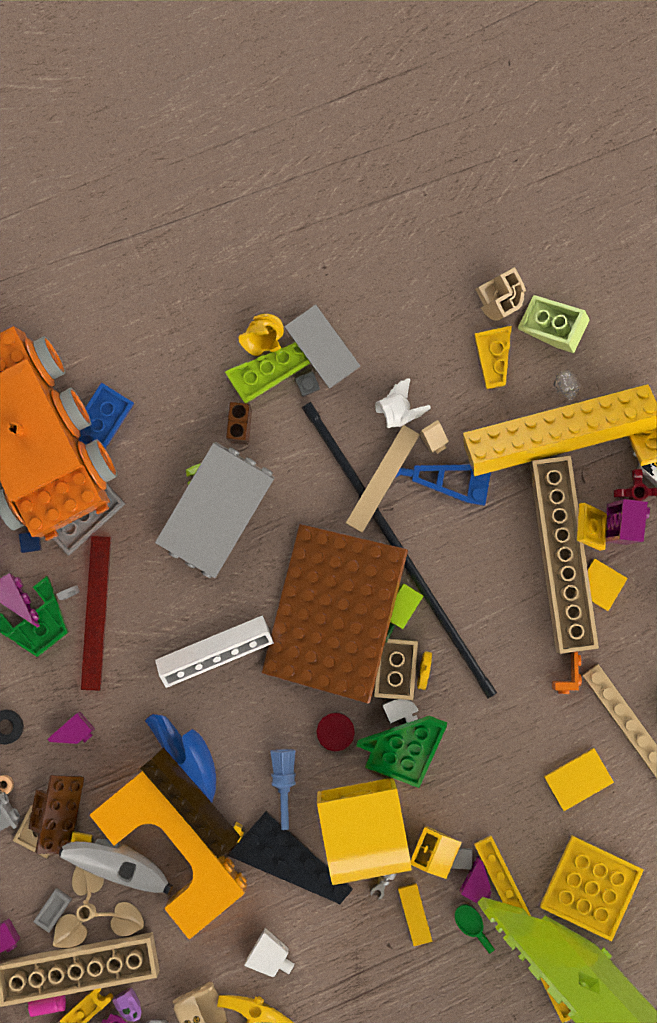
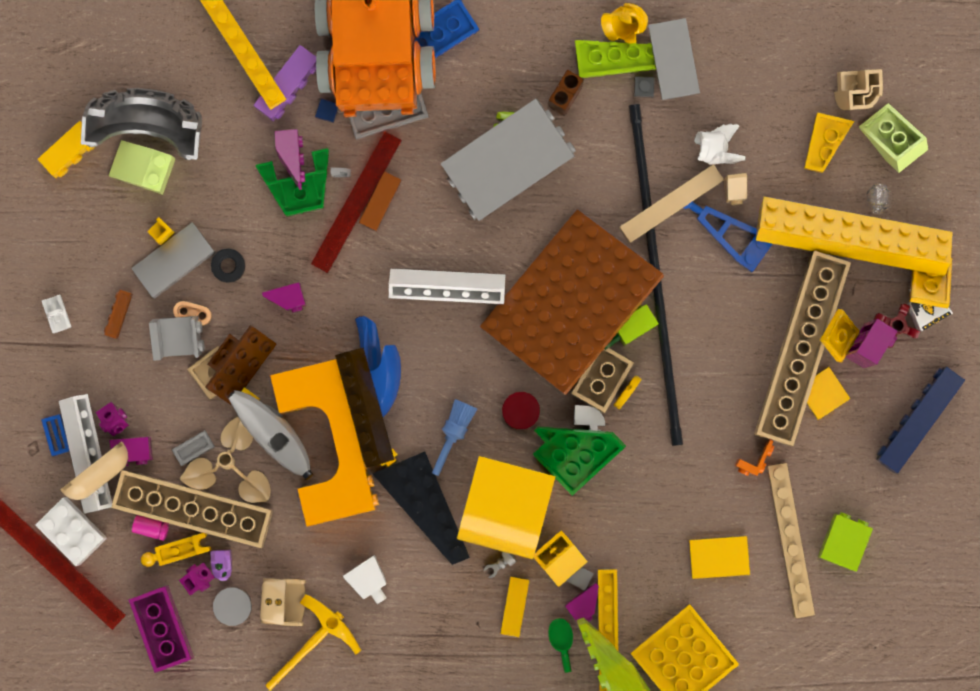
camera: 25 degrees right, 0 degrees up
(117, 602) = (380, 201): none -> dark orange tile

